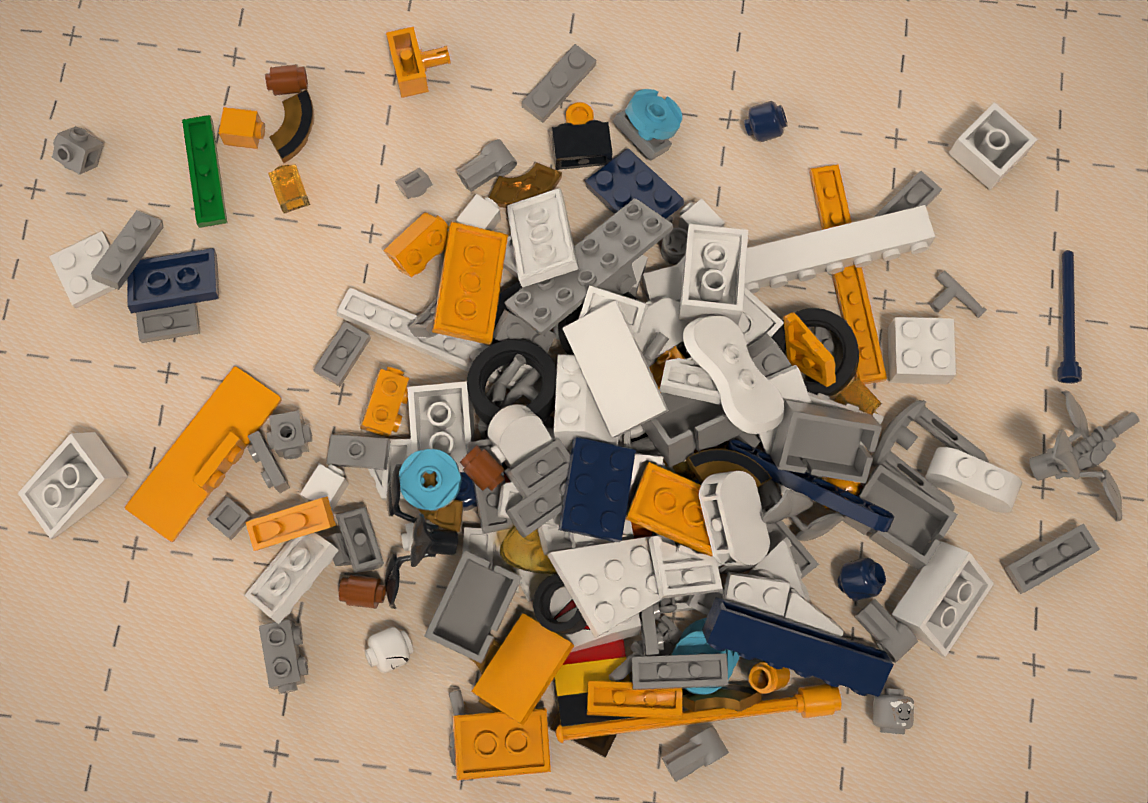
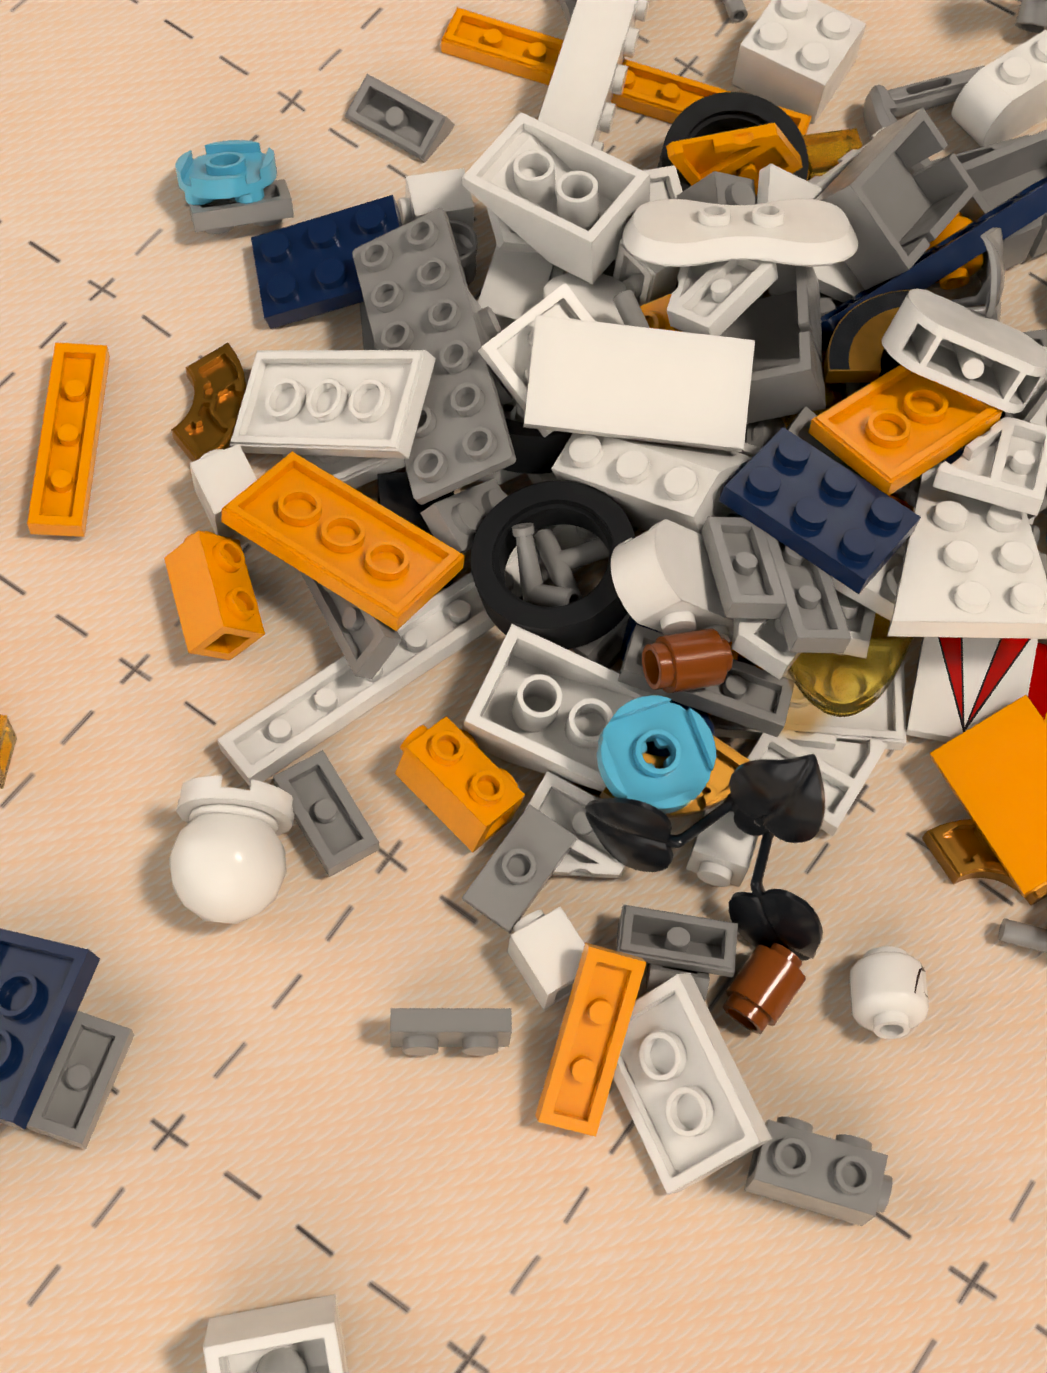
camera: 65 degrees left, 10 degrees down
(203, 454) = (369, 1142): light orange bracket -> none
(229, 518) = (514, 1149): light grey plate -> none
(289, 435) = (424, 964): light grey brick -> none
(292, 323) = (229, 853): none -> white tile
(414, 183) = (99, 552): light grey plate -> none
(466, 135) = (69, 440): none -> light orange plate
(473, 607) = (886, 806): light grey piece -> none
(492, 162) = (144, 426): light grey piece -> none
(542, 611) = (950, 717): black tyre -> none
(559, 83) = (75, 275): light grey plate -> none
(579, 113) = (150, 277): light orange tile -> none
(581, 145) = (203, 291): black brick -> none
(750, 175) = (398, 118): none -> light grey slope
(766, 121) = (334, 49): dark blue head -> none

